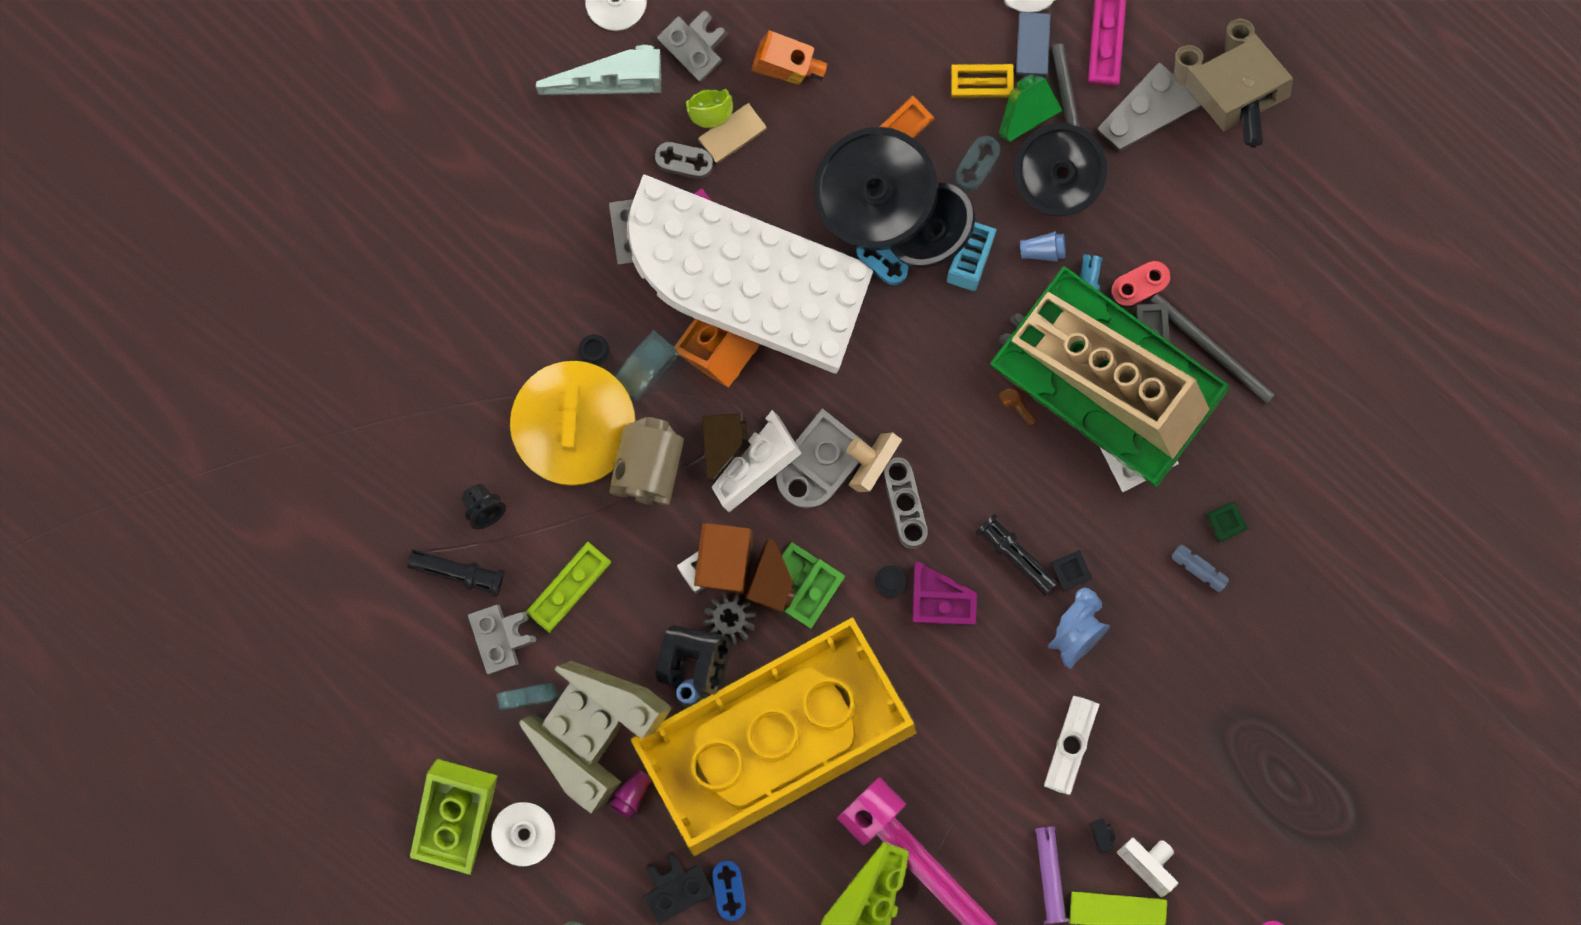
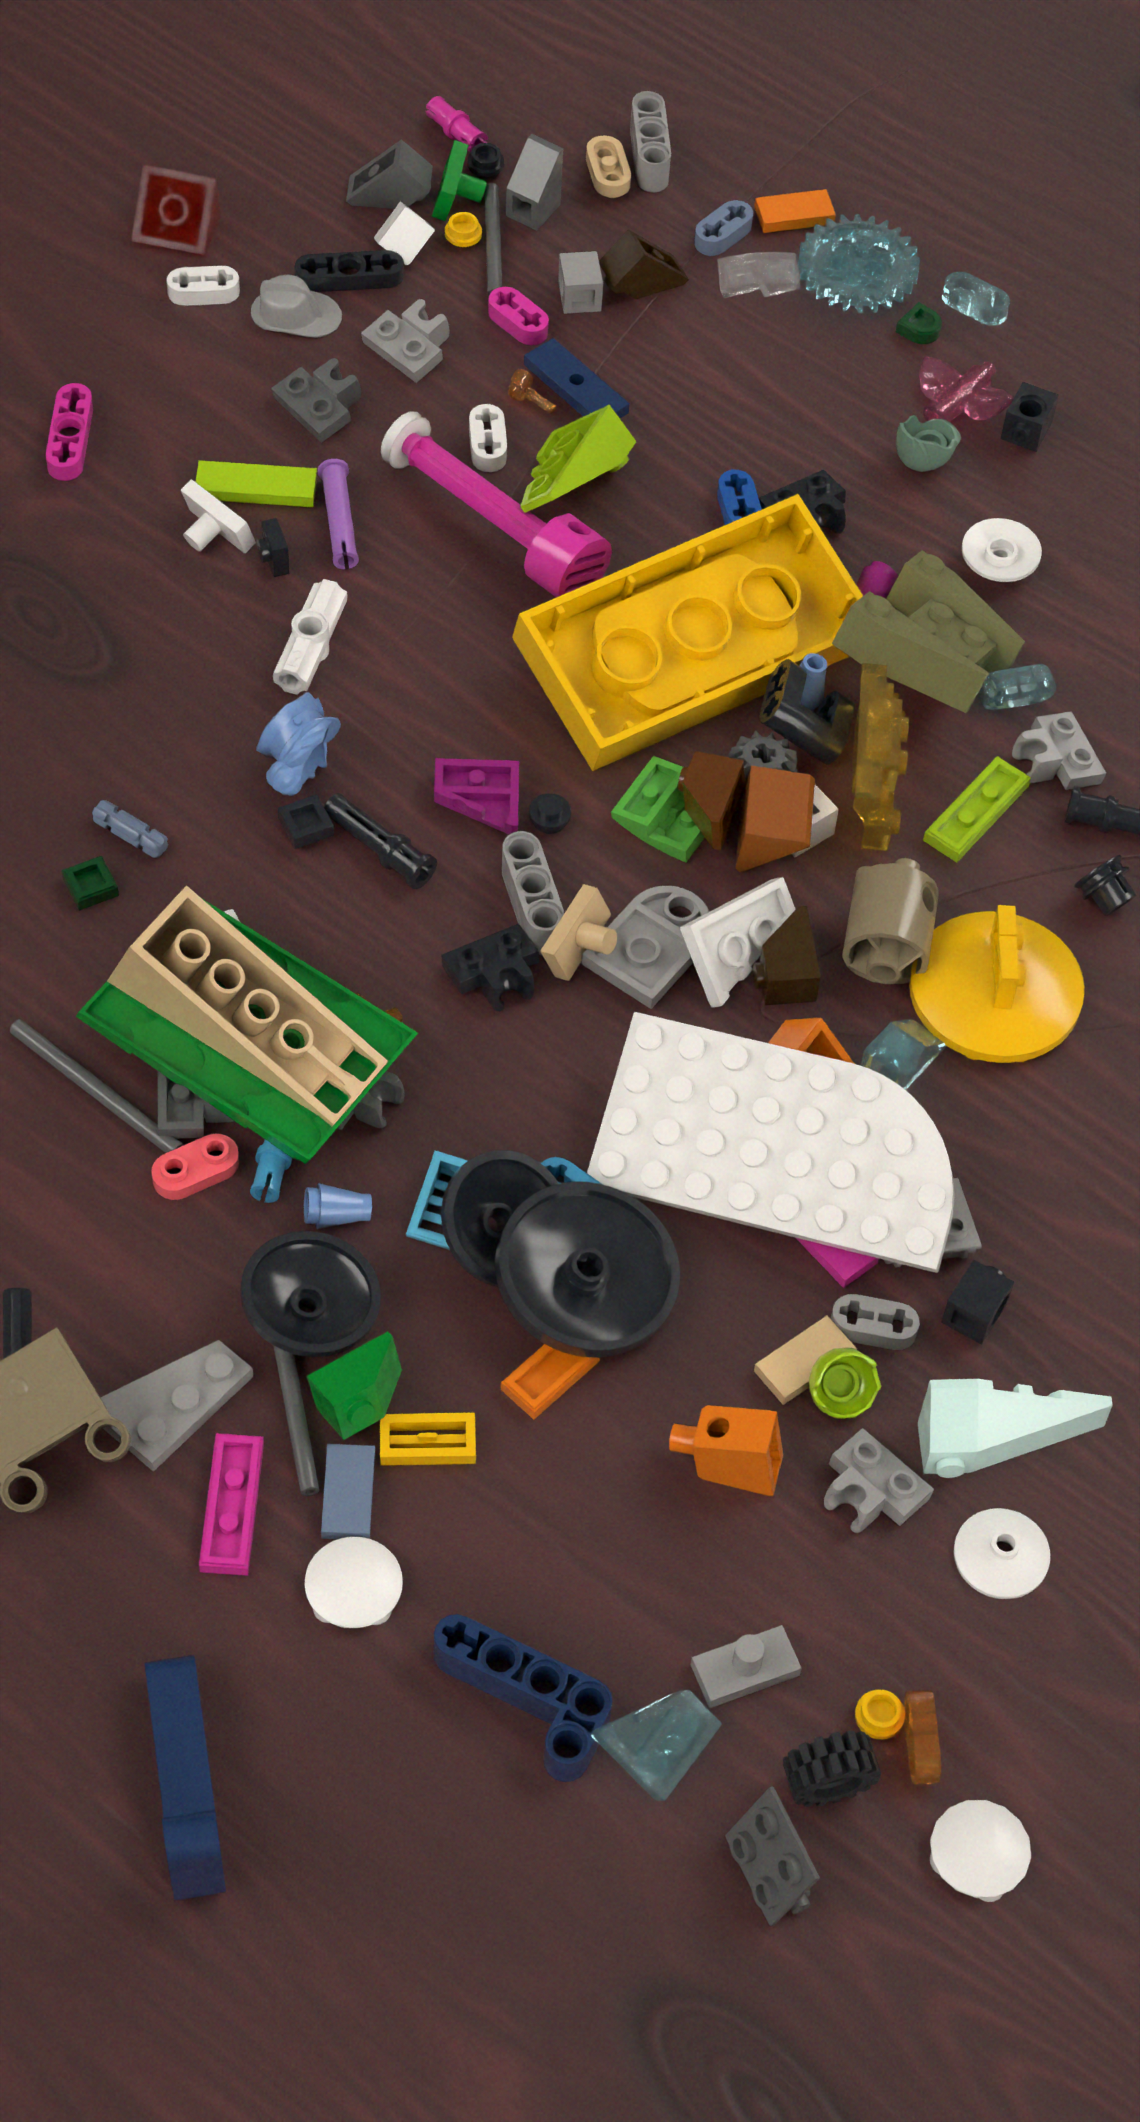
camera: 175 degrees right, 25 degrees down
(452, 816) = (1091, 573): lime slope -> none
(594, 349) = (978, 1076): black plate -> none
(613, 169) = (977, 1301): none -> black brick
(644, 614) = (878, 756): none -> clear yellow bracket
(934, 446) = (495, 964): none -> black plate
(983, 167) = (442, 1327): clear light blue beam -> none

